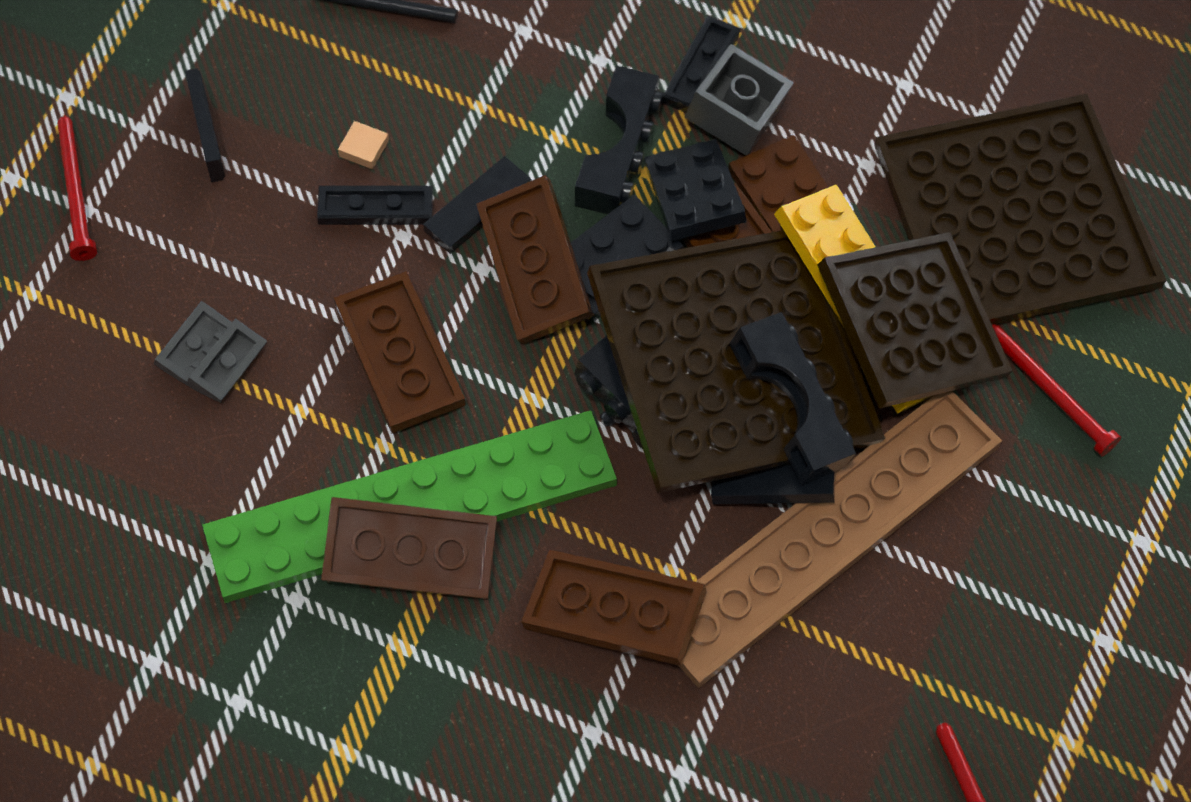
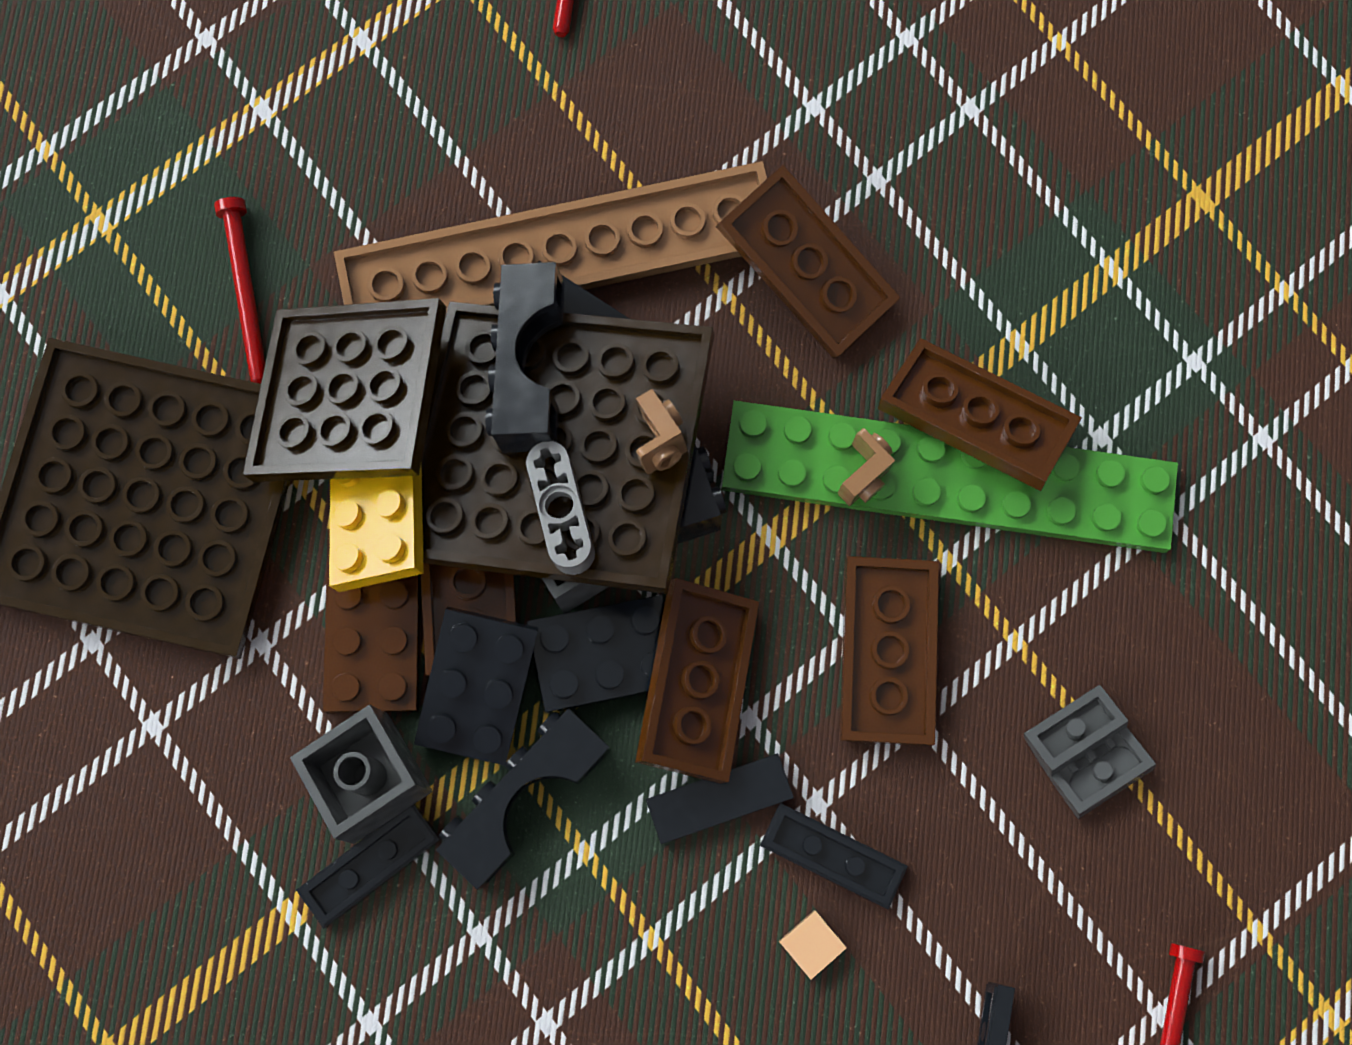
camera: 155 degrees left, 15 degrees up
(476, 451) = (867, 479): none -> medium nougat bracket
(653, 373) = (669, 442): none -> medium nougat bracket
(700, 276) = (545, 493): none -> light grey beam

